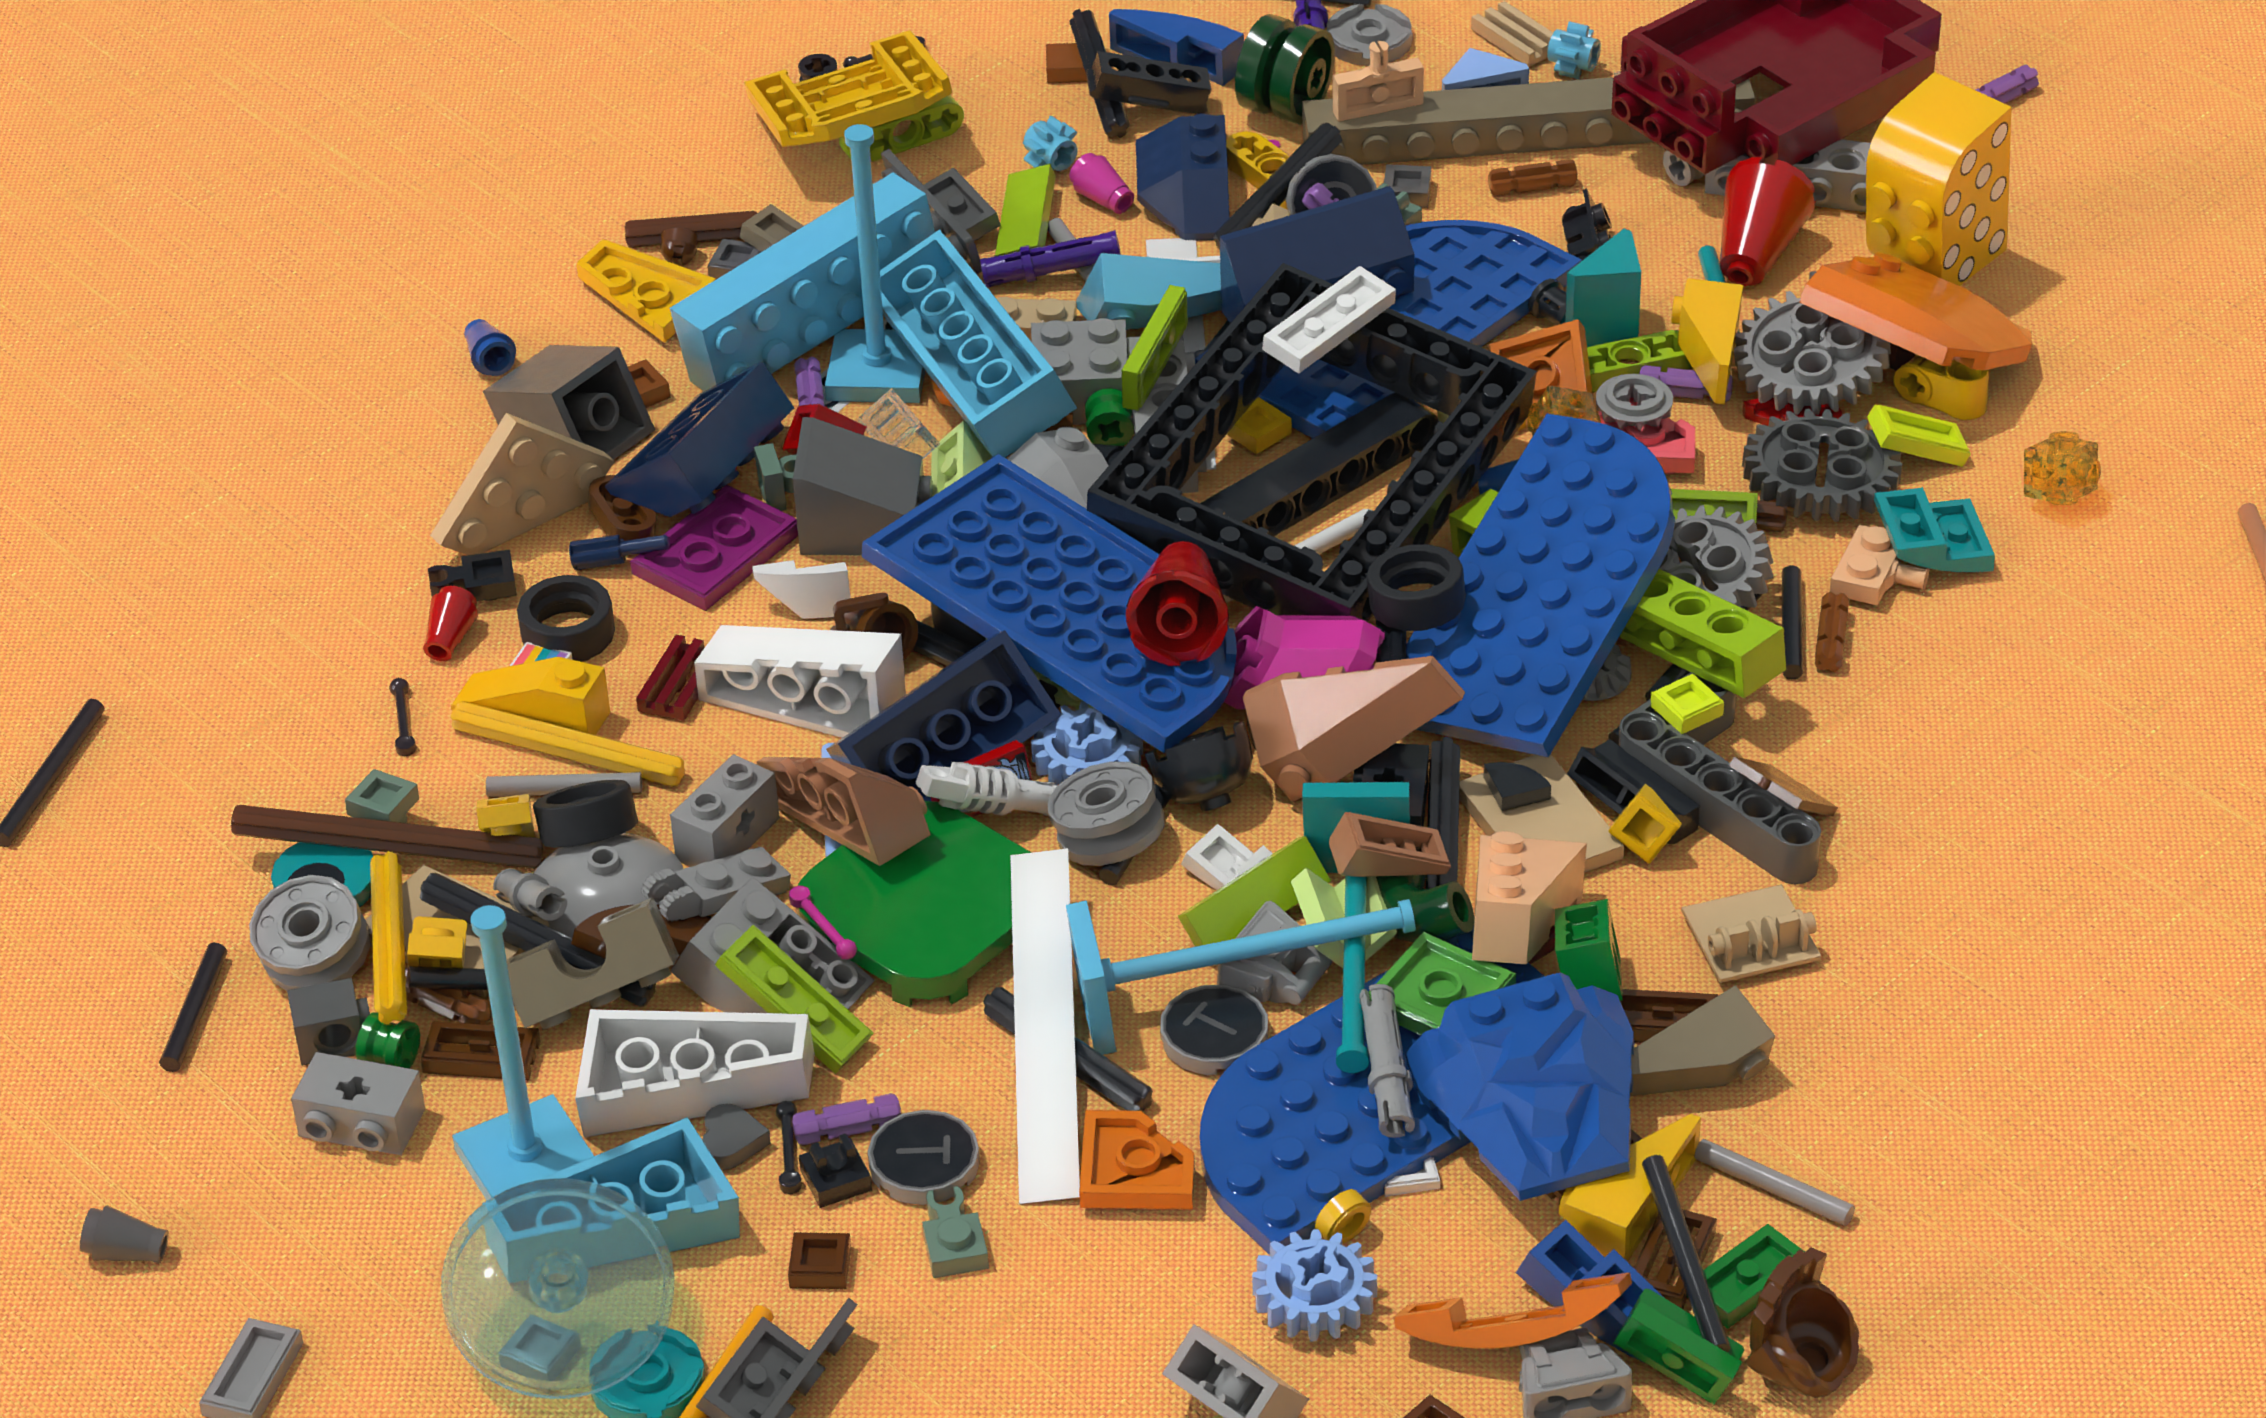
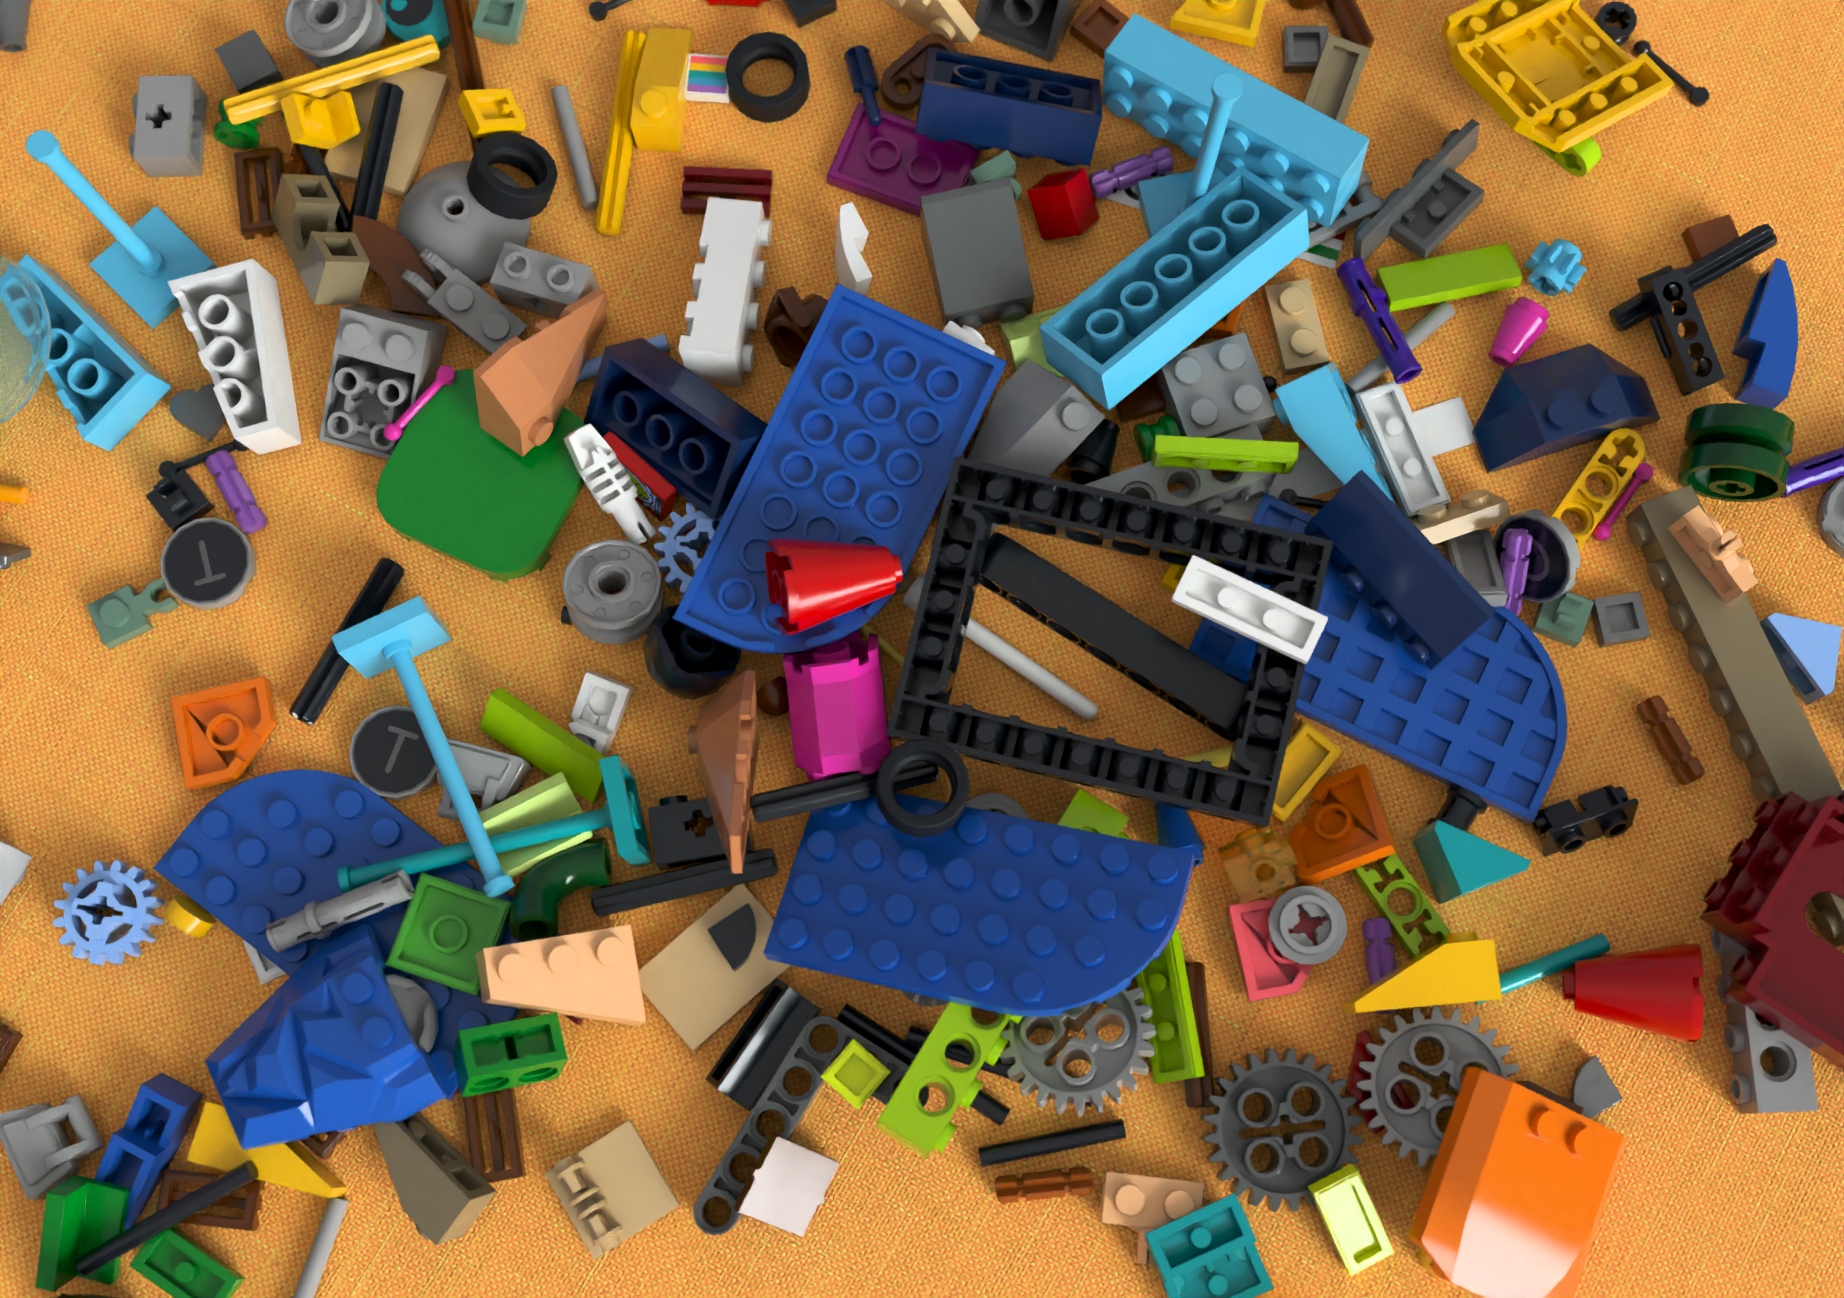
camera: 75 degrees right, 35 degrees up
(530, 894) = (412, 167): light grey pin -> none
(786, 988) = (329, 408): lime tile -> none
(819, 1260) = (86, 519): reddish brown tile -> none
(896, 424) = (1081, 265): clear slope -> none
(1044, 1028) = (311, 628): white sticker -> none
(1275, 188) = (1553, 498): black axle -> none
(1386, 848) = (564, 815): nougat slope -> none
(1447, 1322) = (79, 1086): orange slope -> none
(1645, 824) = (711, 1063): yellow slope -> none
(1940, 180) = (1716, 1178): yellow brick -> none

